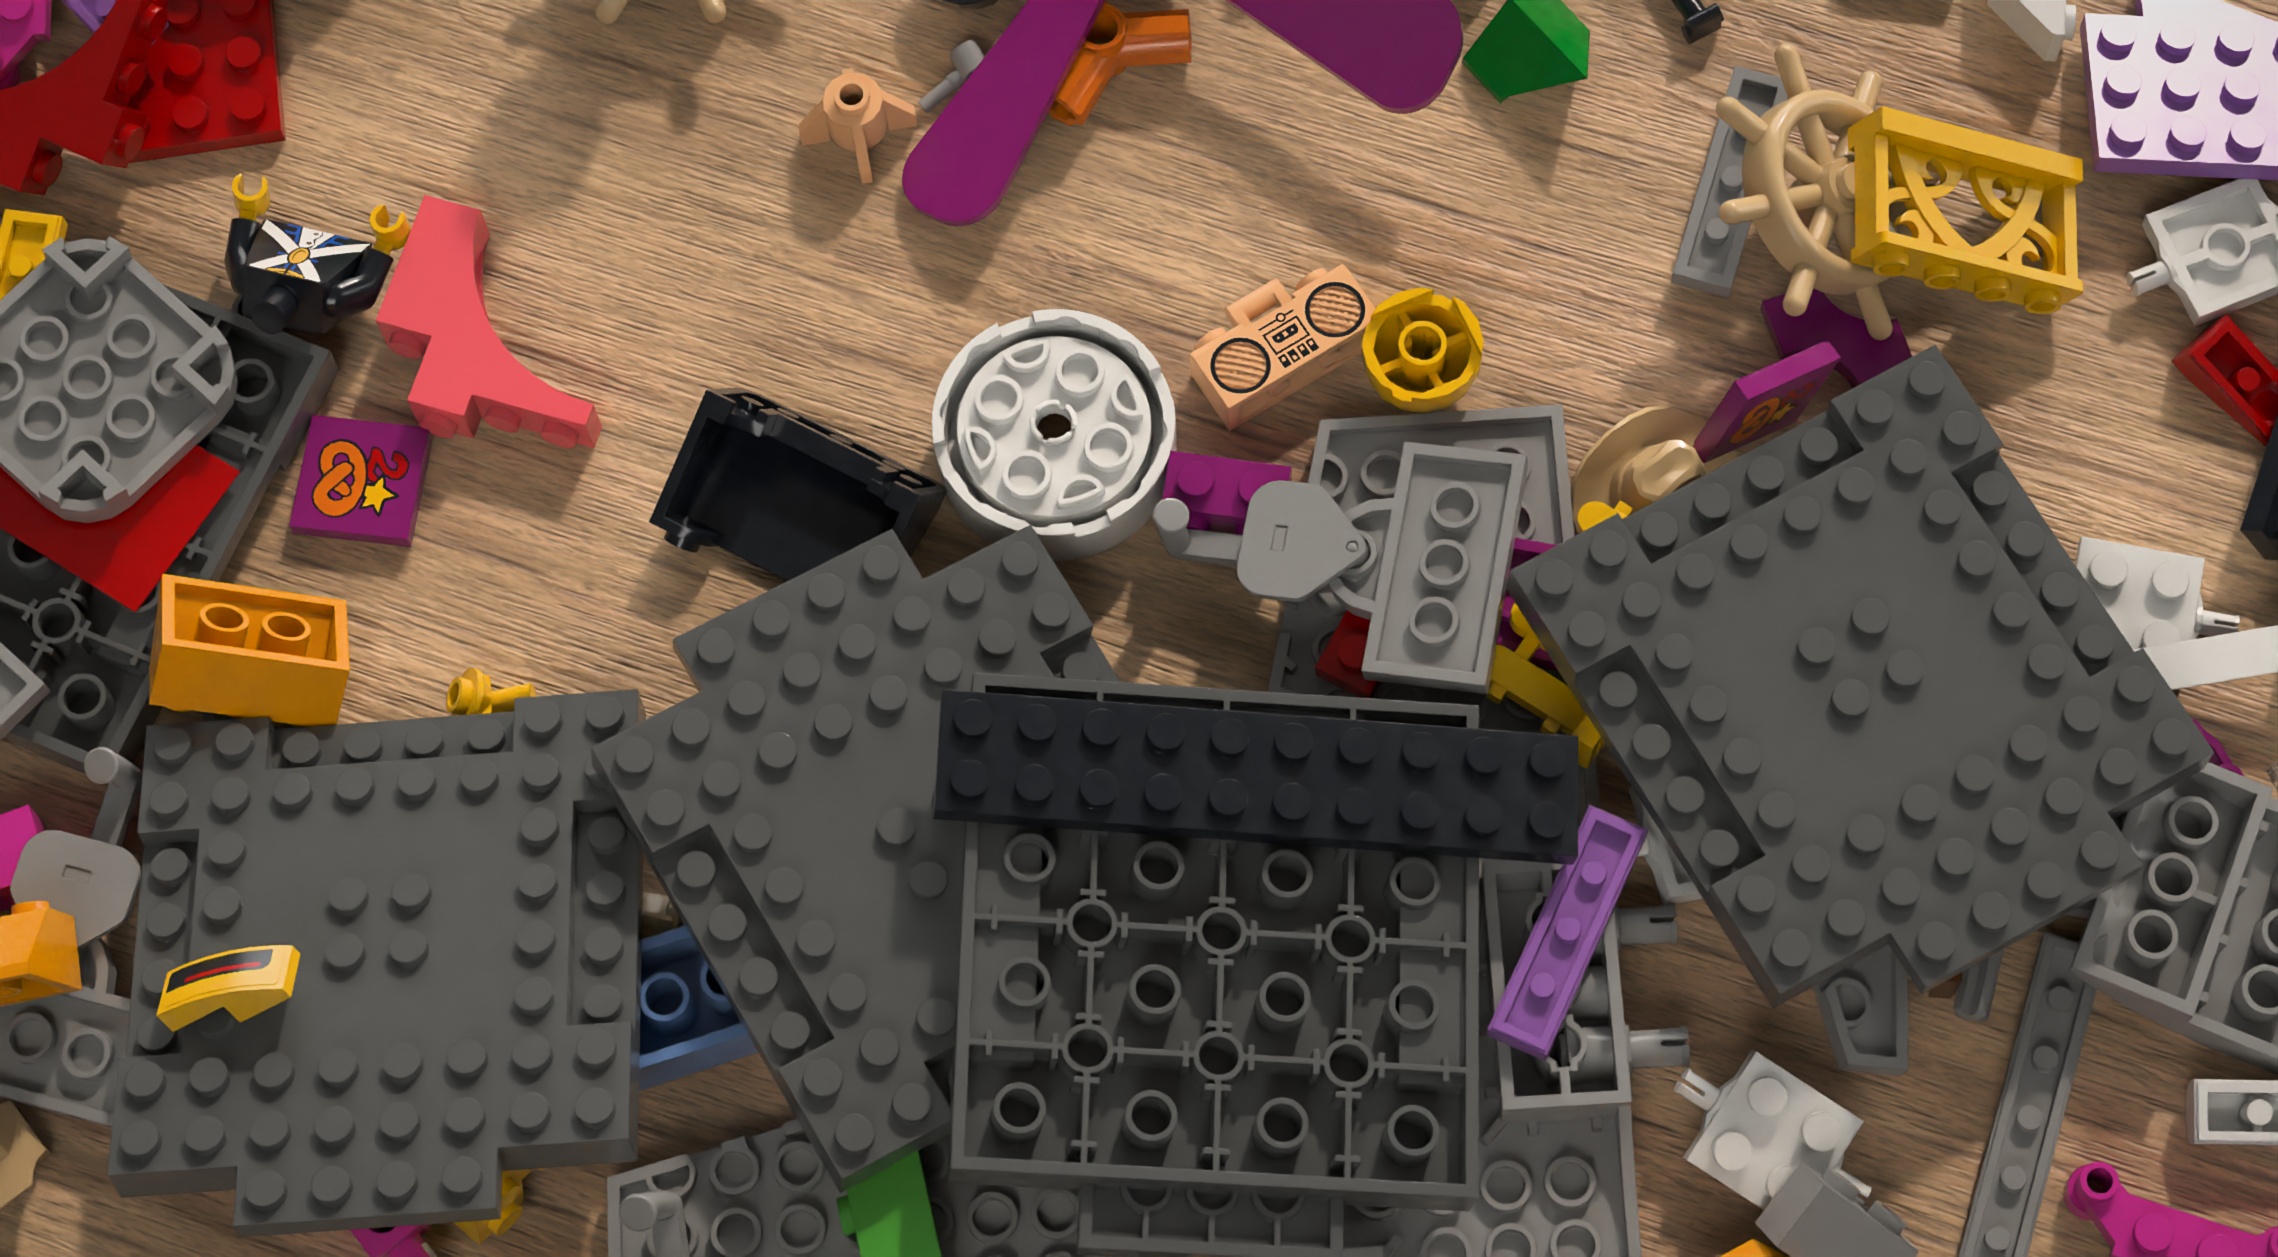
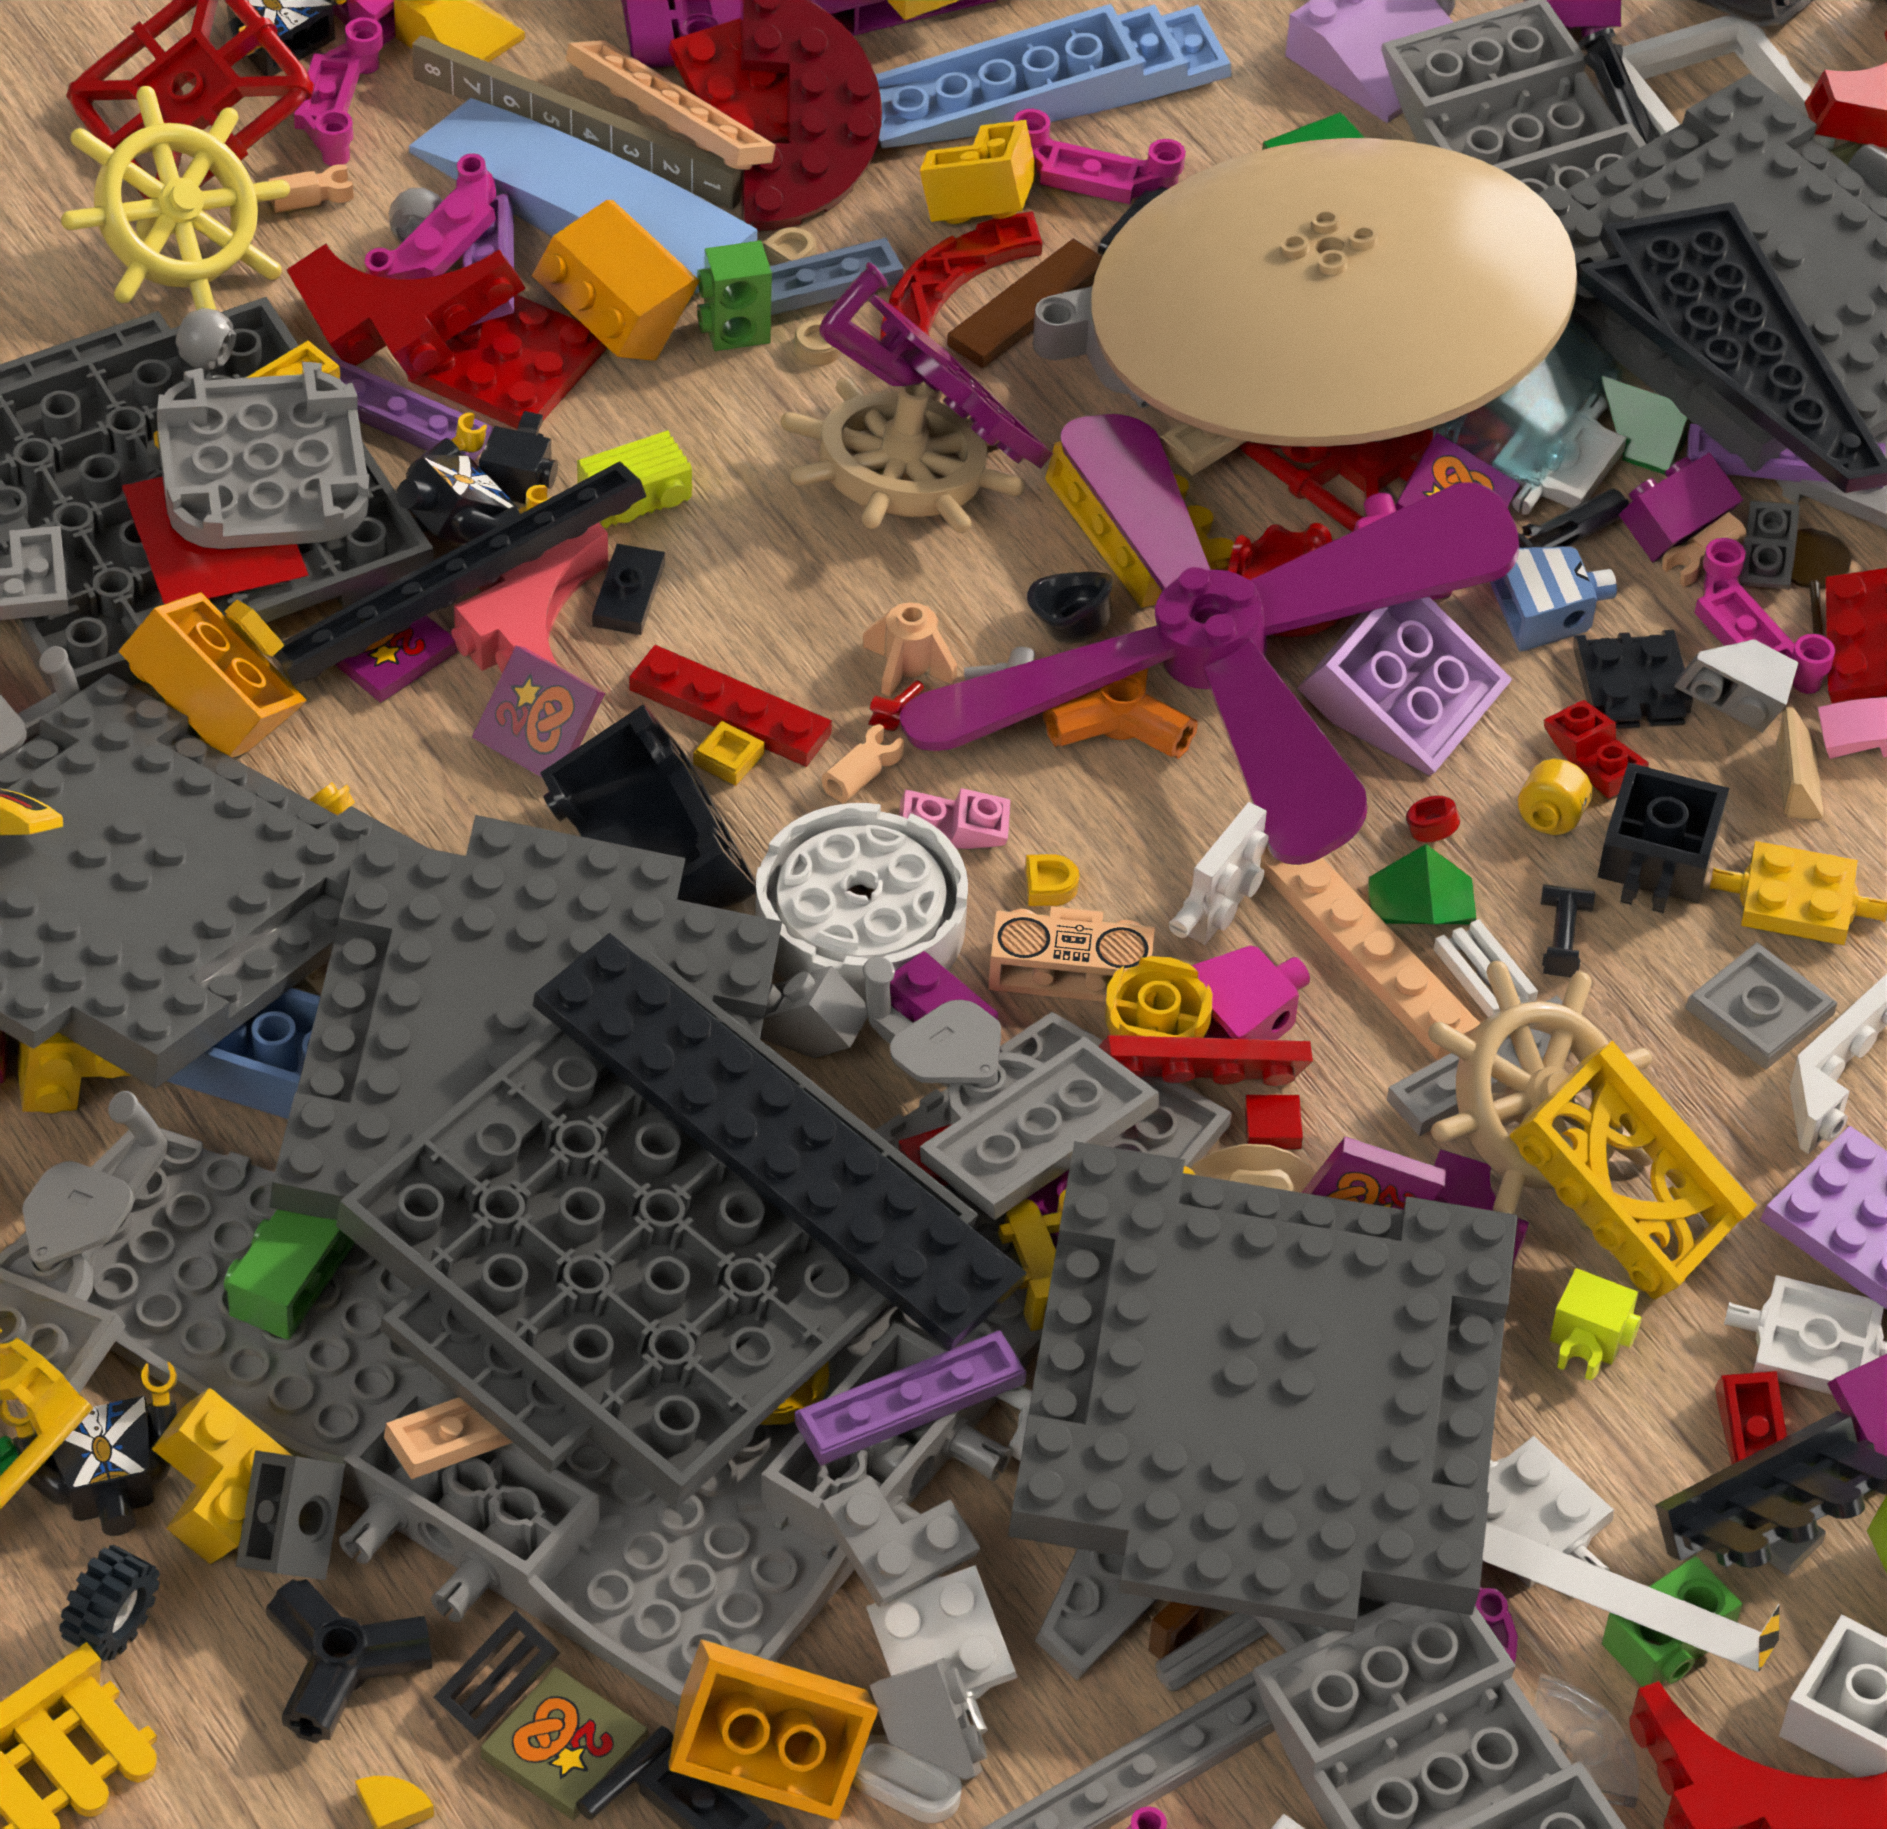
camera: 30 degrees right, 20 degrees down
(147, 206) = (403, 411): none -> medium lavender tile
(243, 572) = (253, 628): none -> yellow tile
(314, 184) = (519, 458): none -> black brick
(386, 366) = (457, 573): none -> black plate
(441, 123) = (658, 465): none -> neon yellow brick
(536, 247) = (628, 589): none -> black plate
(589, 458) = (537, 712): none -> magenta tile
(740, 304) = (718, 697): none -> red plate
(784, 358) = (728, 753): none -> yellow tile
(892, 205) = (888, 711): none -> red hand
(919, 282) = (861, 765): none -> light nougat bar
(1054, 277) = (968, 822): none -> bright pink slope
(1122, 582) = (813, 1013): none -> light grey slope
(1188, 274) = (1050, 879): none -> yellow tile
(1363, 161) = (1224, 877): none -> white plate
(1479, 267) = (1252, 994): none -> dark pink torso
(1519, 361) = (1216, 1058): none -> red plate
(1535, 138) = (1369, 948): none -> light nougat plate
(1595, 380) = (1274, 1120): none -> red tile
(1678, 1100) = (893, 1555): none -> light grey plate
(1683, 82) = (1481, 950): none -> white tile
(2035, 379) = (1594, 1321): none -> neon yellow brick

